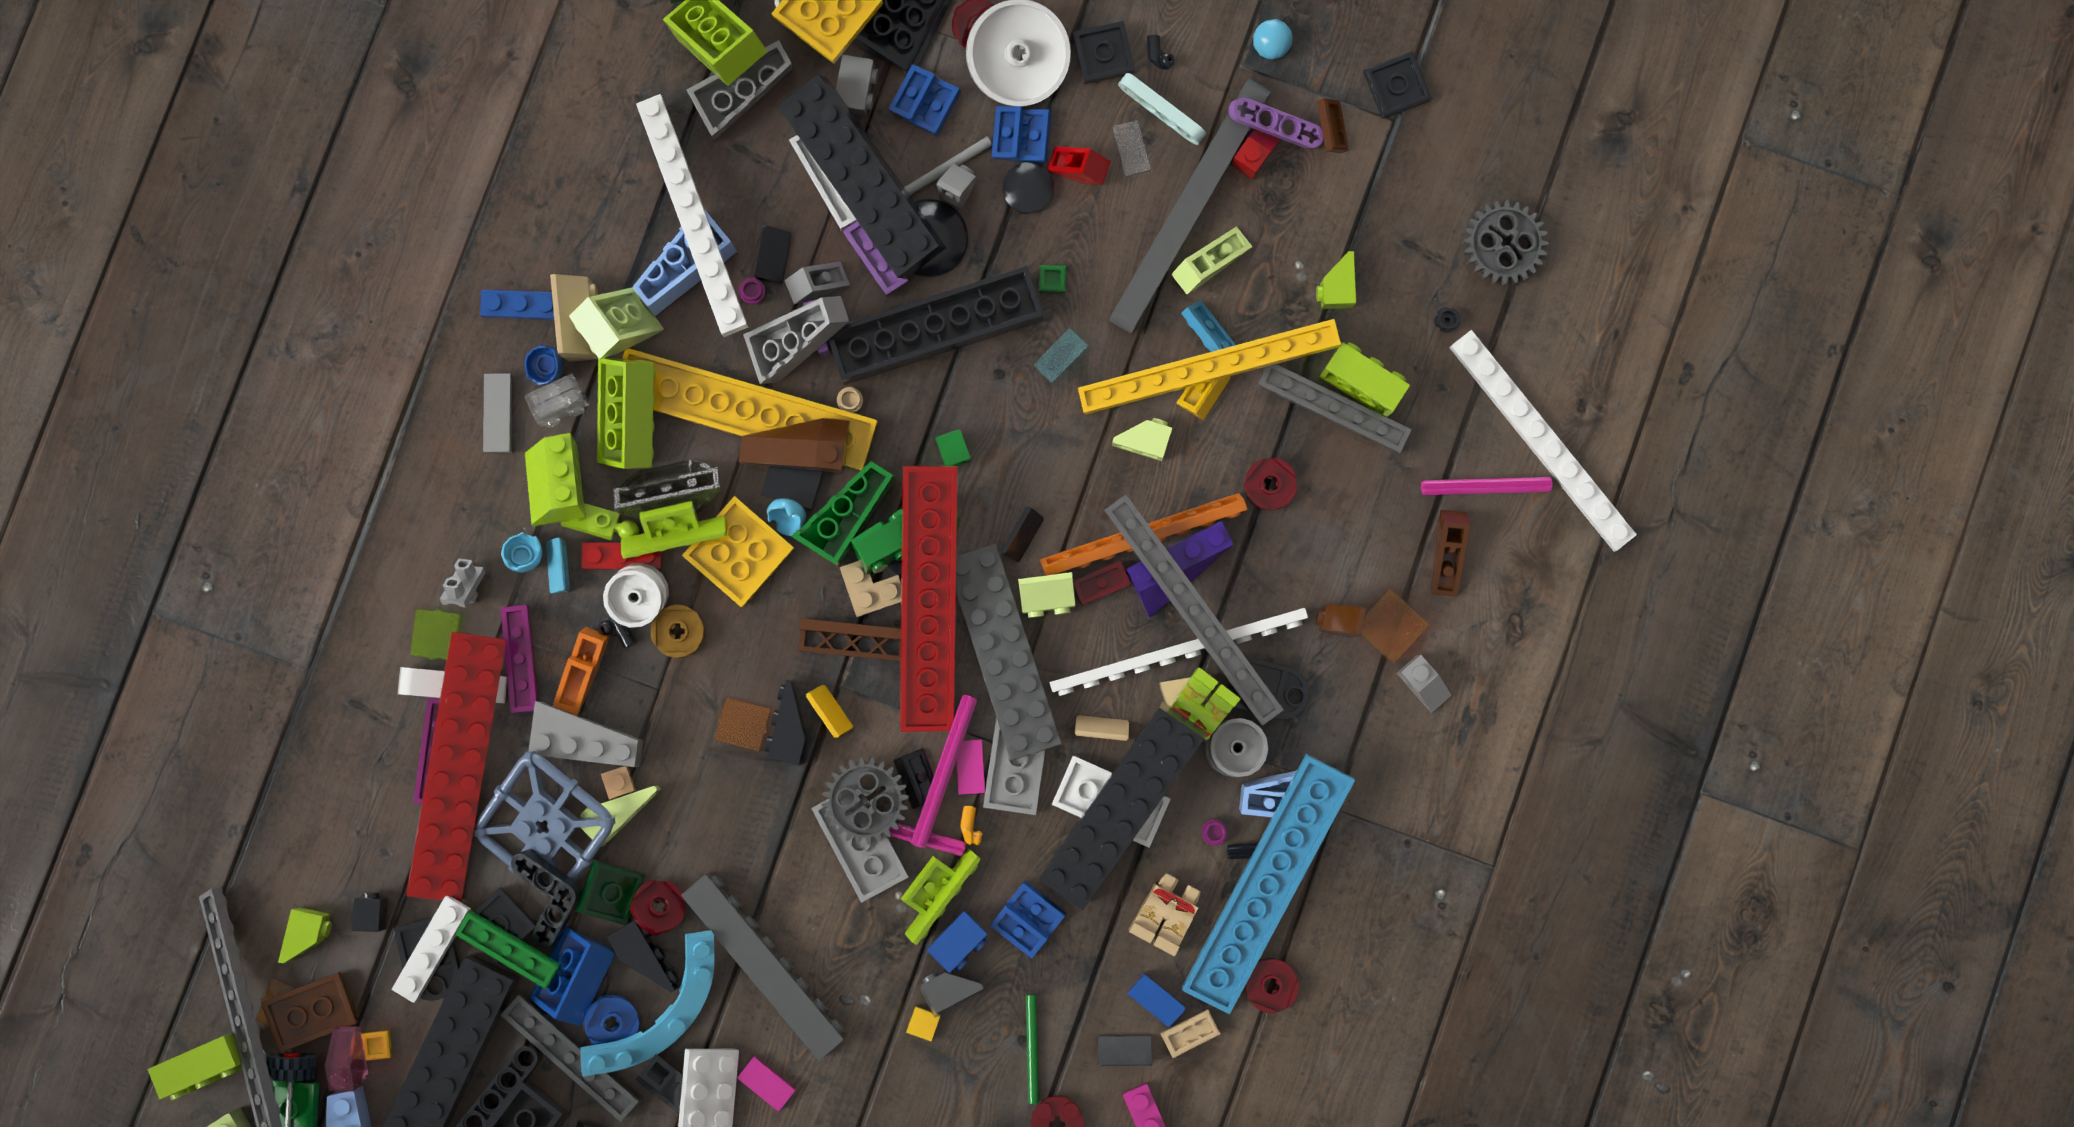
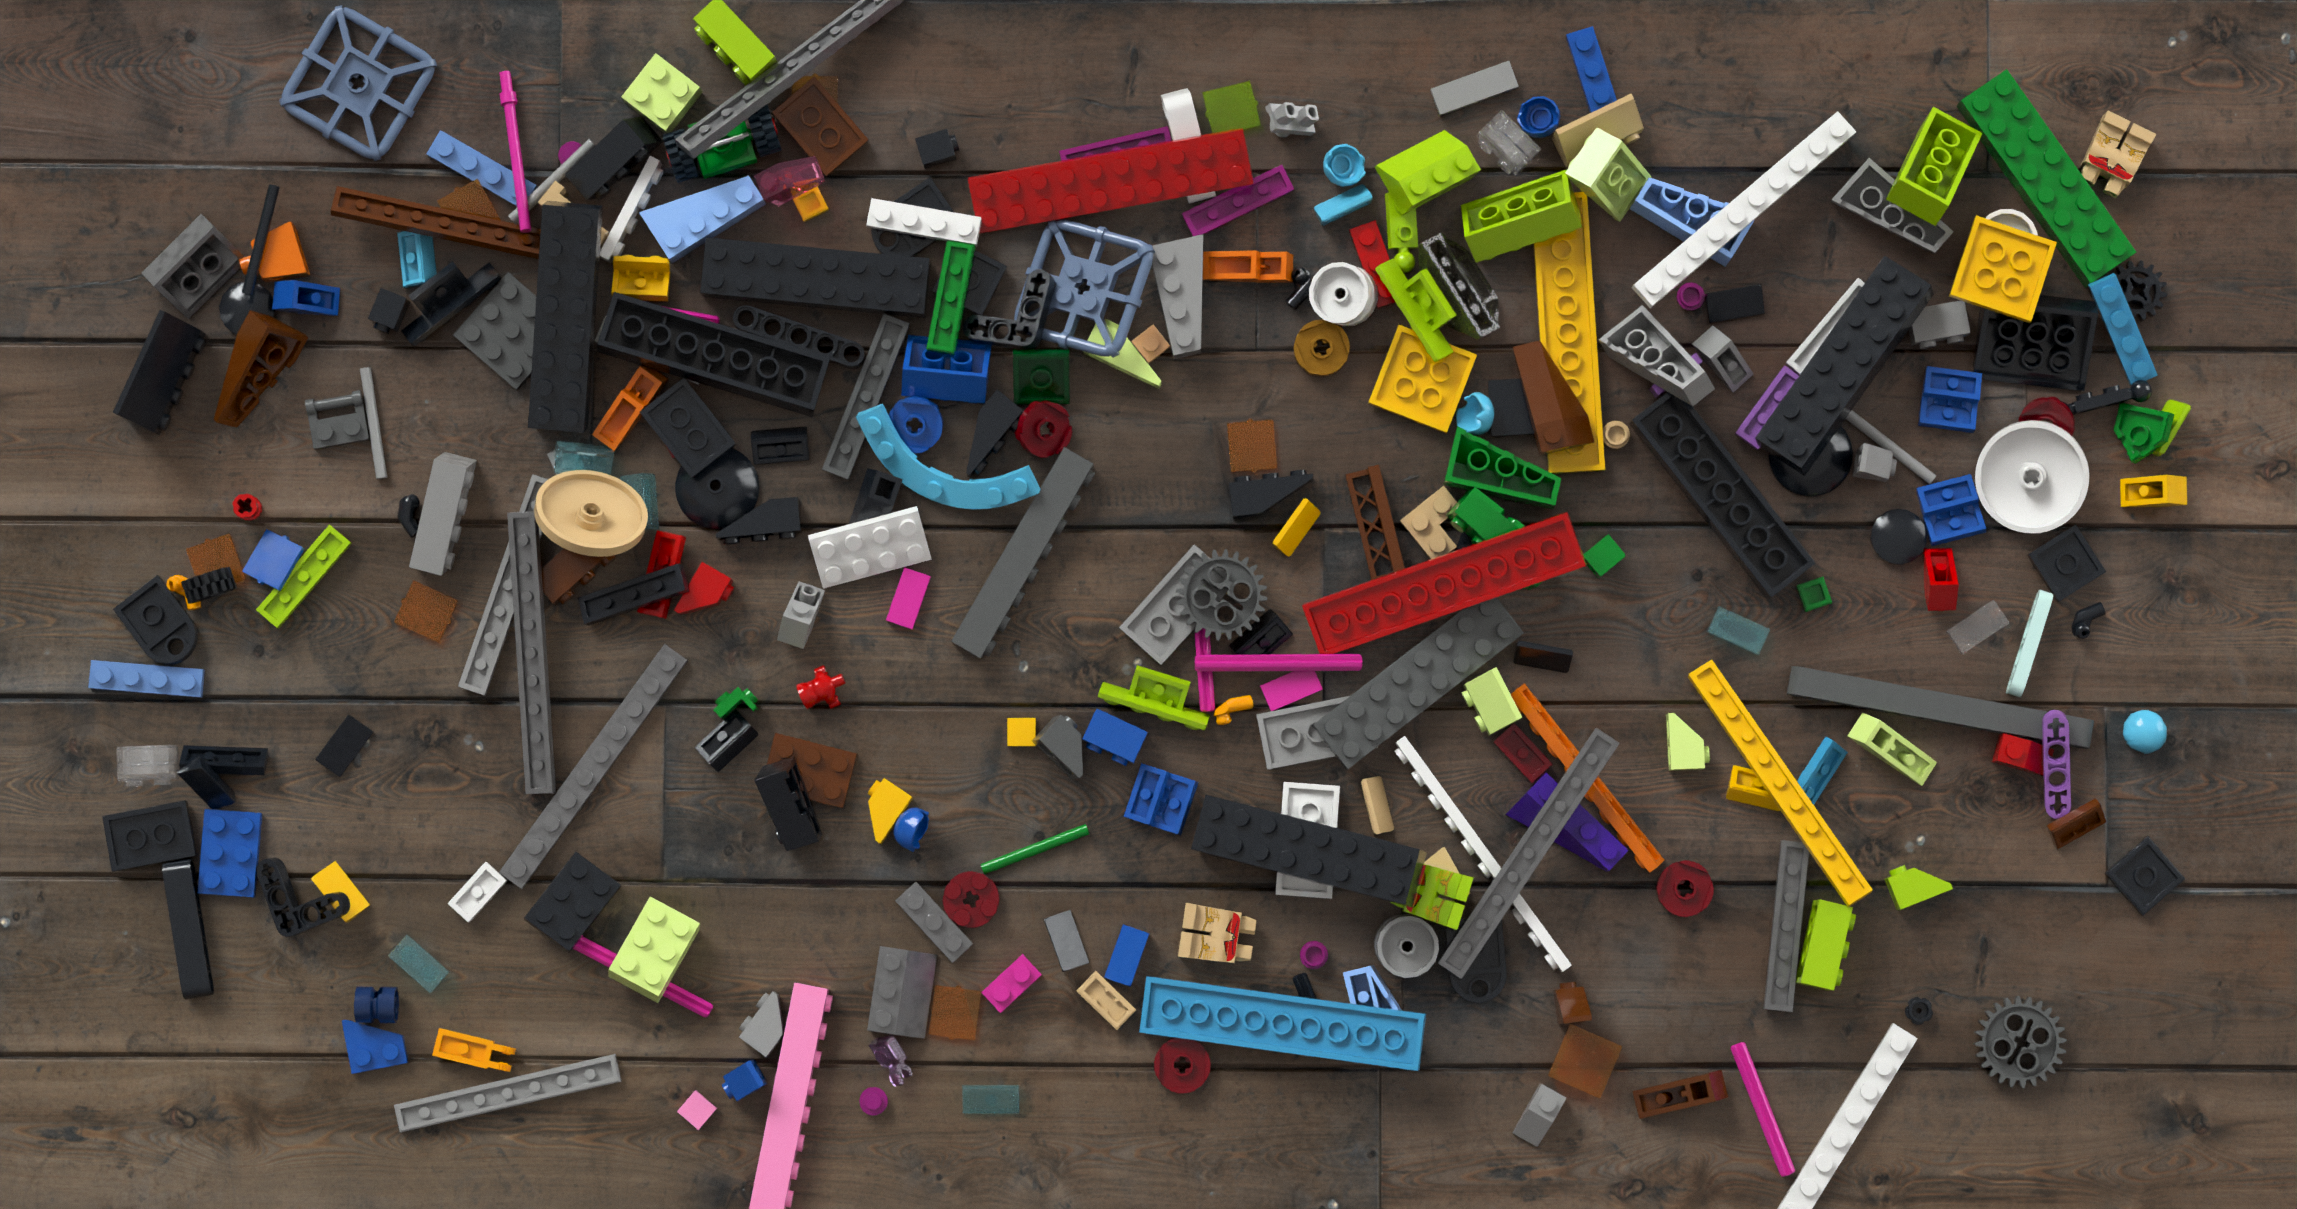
camera: 75 degrees right, 0 degrees up
(303, 932) = (894, 92): lime slope -> none

